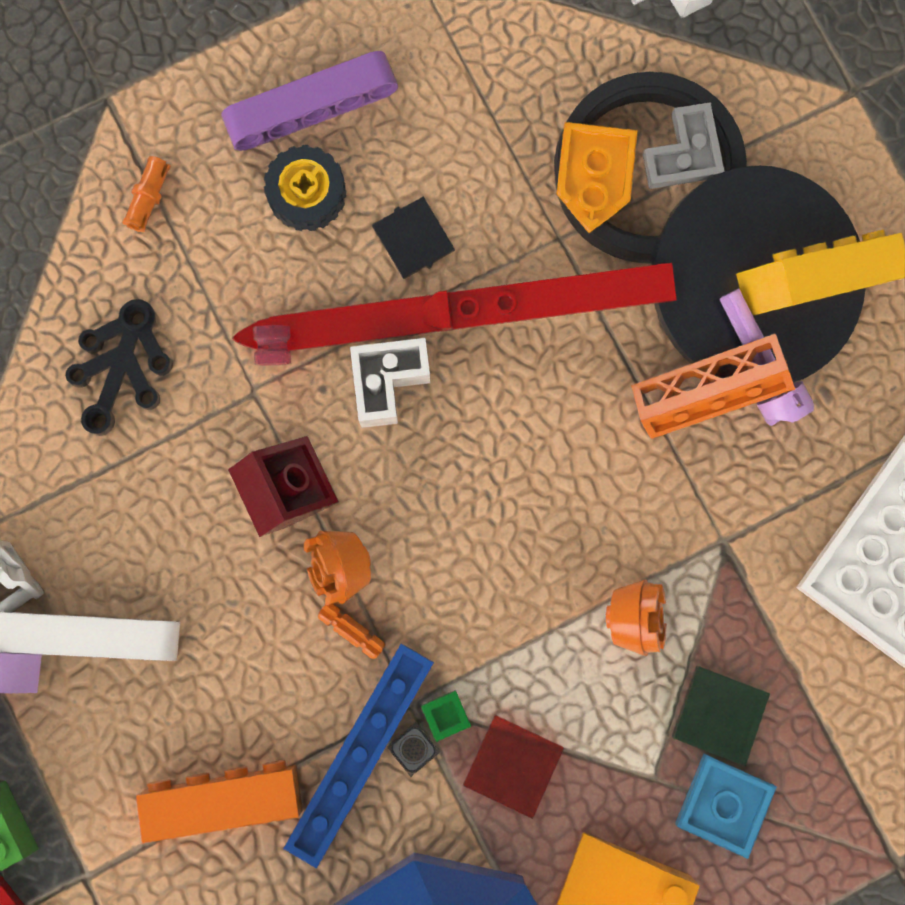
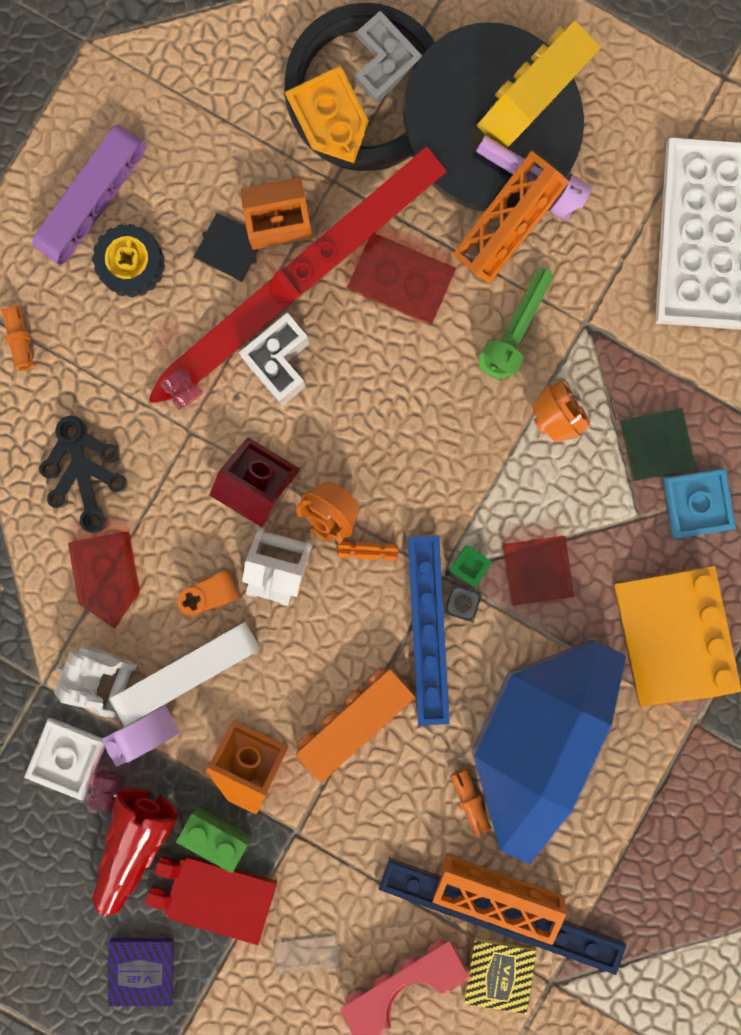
camera: 30 degrees left, 5 degrees up
(73, 483) = (105, 575): none -> clear red tile
(79, 772) = (245, 765): none -> orange slope
(166, 570) = (213, 592): none -> orange piece
(235, 593) = (271, 576): none -> white piece
(480, 233) = (276, 213): none -> orange slope
(564, 377) = (401, 279): none -> clear red tile
(618, 520) = (505, 352): none -> bright green piece

